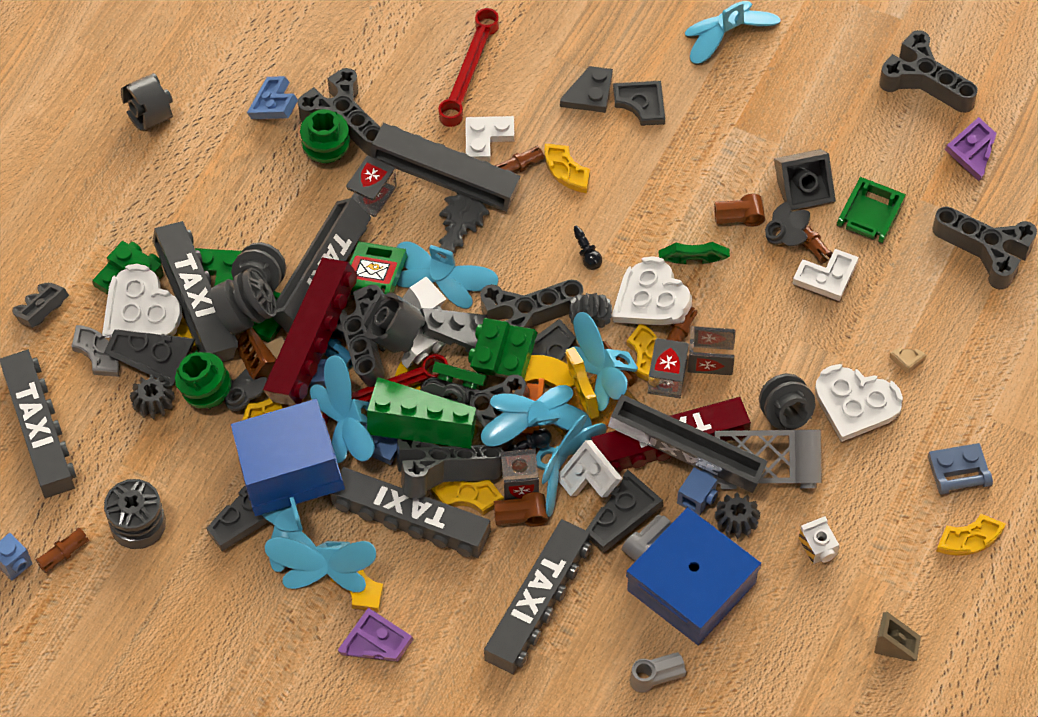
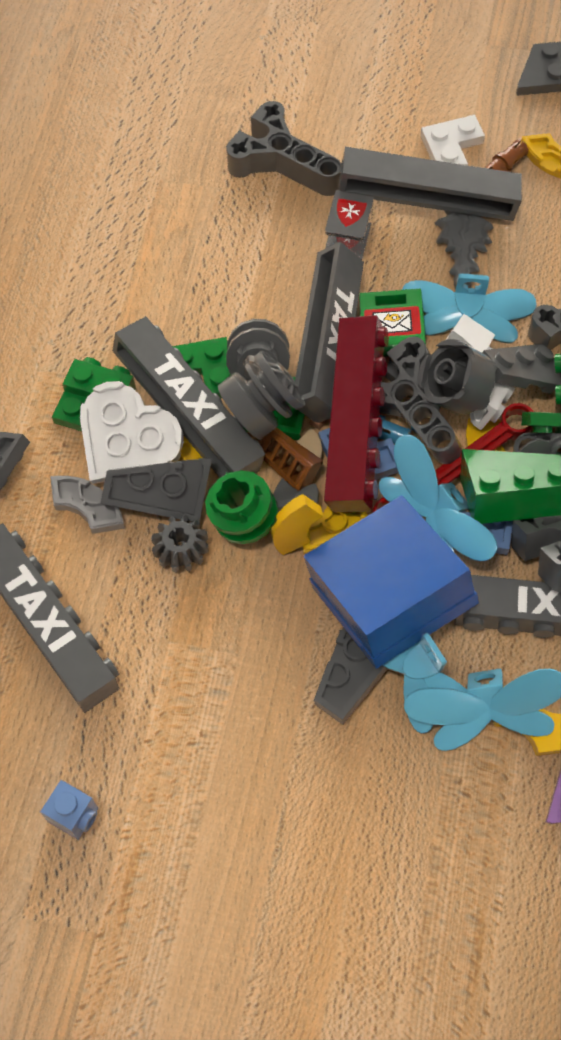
camera: 15 degrees left, 5 degrees up
(62, 550) = (133, 780): dark orange pin -> none
(135, 513) = (227, 723): dark grey wheel -> none
(147, 102) = (47, 190): dark grey brick -> none
(233, 400) = (293, 524): none -> yellow tile
(271, 100) = (193, 159): medium blue plate -> none
(325, 136) = (274, 181): green piece -> none
(468, 67) = (400, 75): red piece -> none

